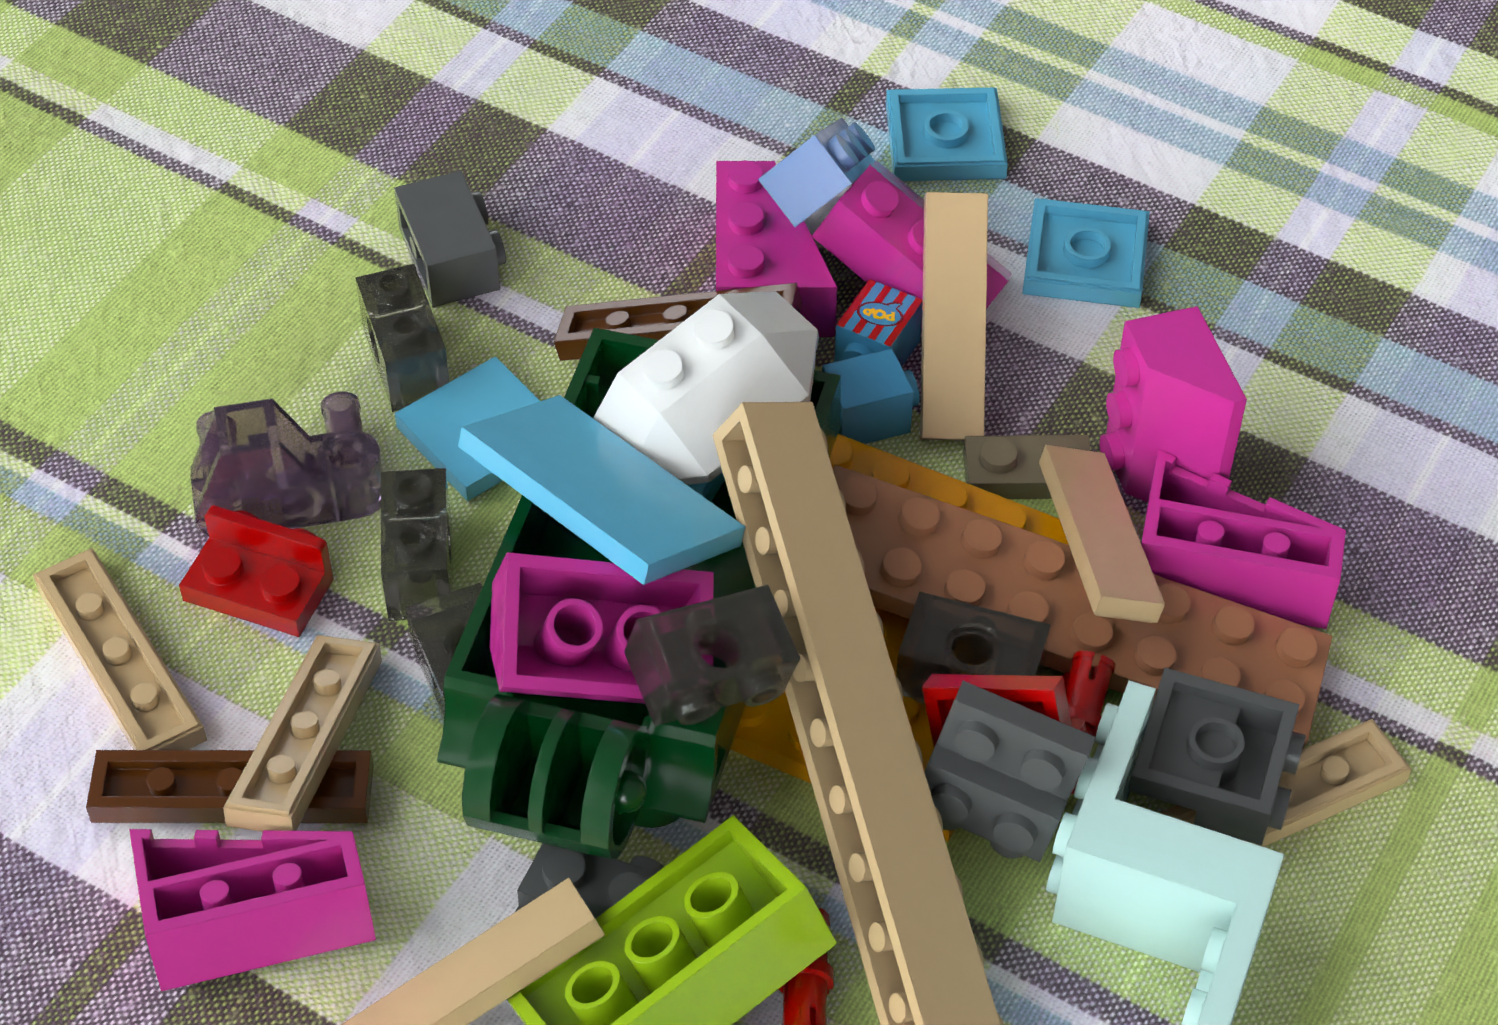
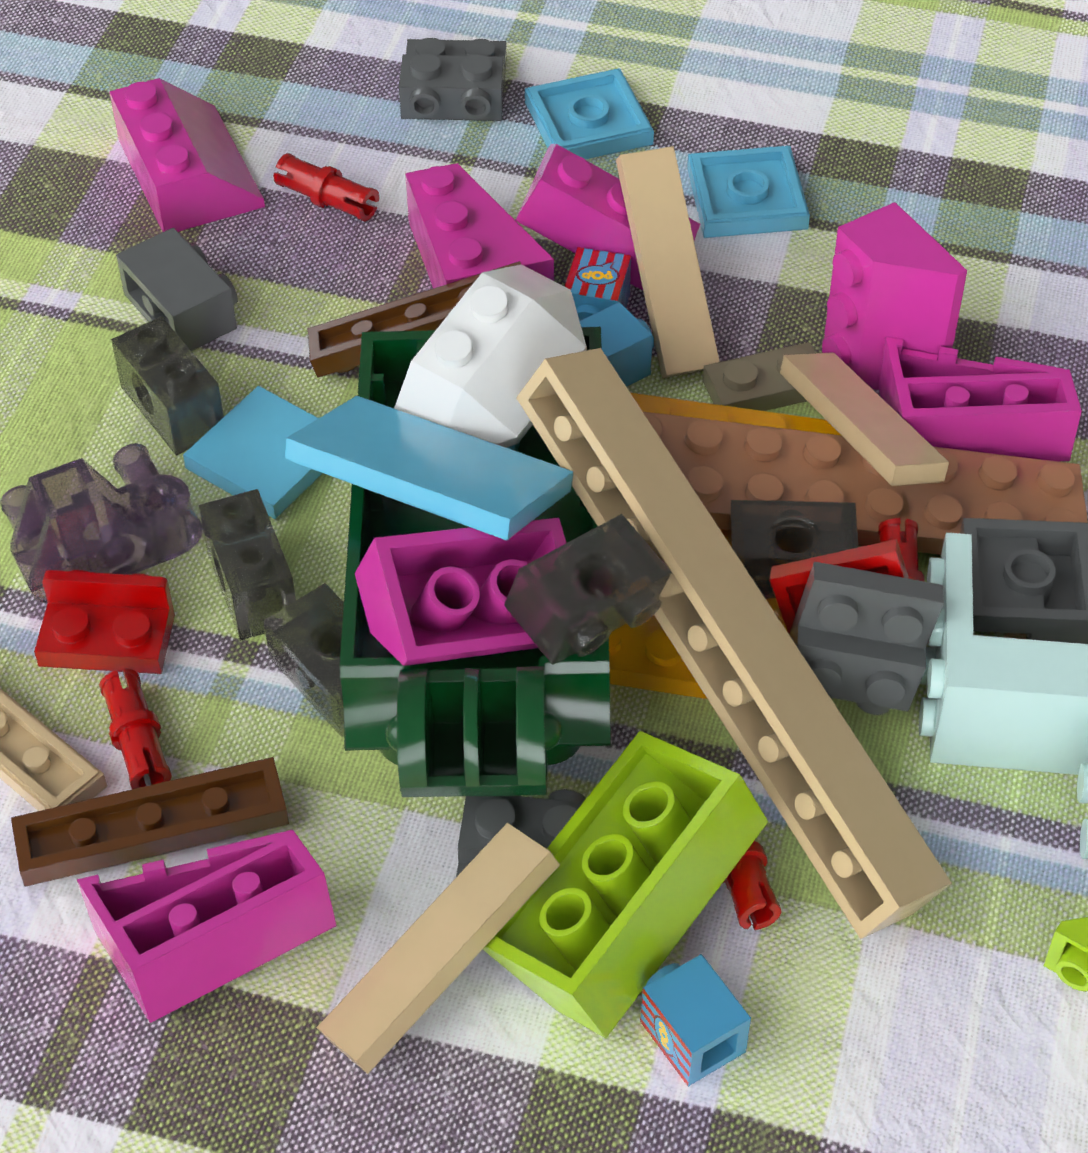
camera: 15 degrees left, 0 degrees up
(249, 686) = (134, 729): none -> red pin
(303, 735) = (206, 758): tan tile -> none
(506, 93) = (182, 155): none -> dark pink slope
(641, 156) = (326, 187): none -> red pin
(815, 64) = (453, 79): none -> dark grey plate
(819, 170) = (506, 161): medium blue brick -> none

